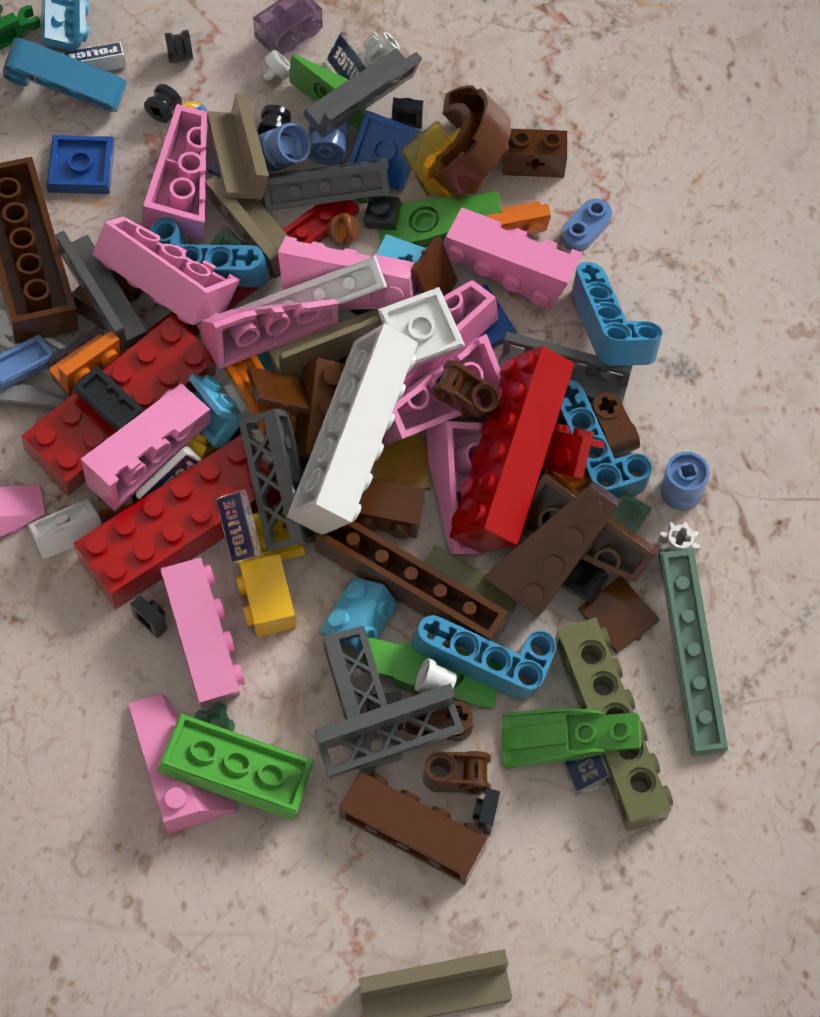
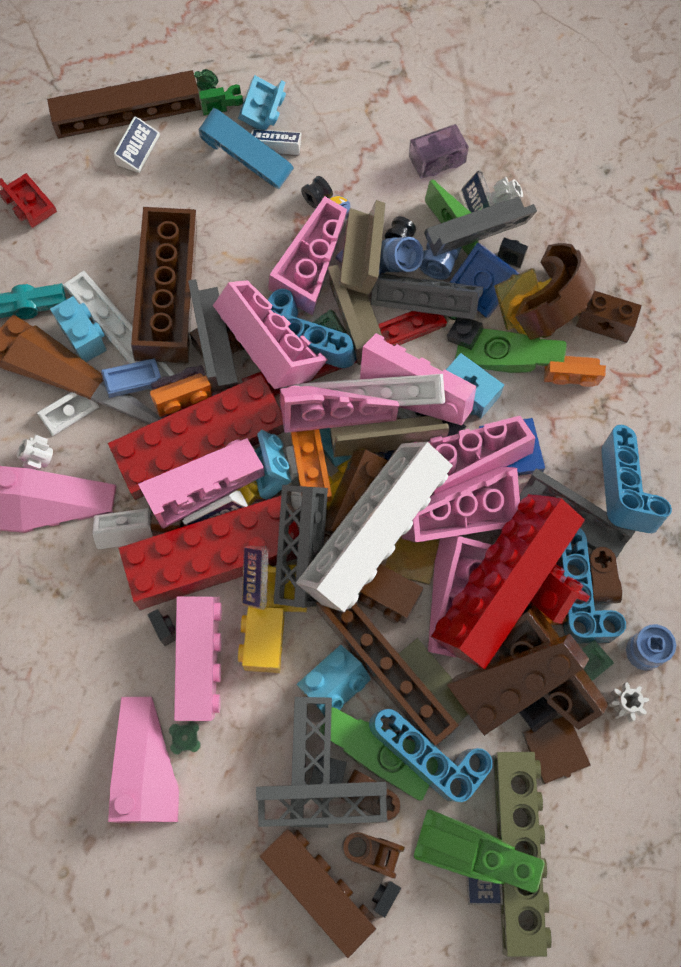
camera: 20 degrees right, 5 degrees up
(80, 164) = (237, 225): blue tile -> none
(107, 399) = (183, 434): black plate -> none
(178, 46) = (344, 148): black wheel -> none
(236, 766) = (186, 788): bright green tile -> none
(277, 65) = (418, 185): white tile -> none
(278, 390) = (325, 467): reddish brown piece -> none
(343, 229) = (428, 337): dark orange tile -> none
(427, 322) = (465, 445): white plate -> none
(433, 676) = (377, 764): white piece -> none
(434, 269) = (490, 399): reddish brown piece -> none
(459, 389) = (479, 511): reddish brown piece -> none
(510, 257) = (559, 403): bright pink wedge -> none
(587, 222) = (634, 388): medium blue plate -> none
(693, 652) = (610, 810): sand green tile -> none

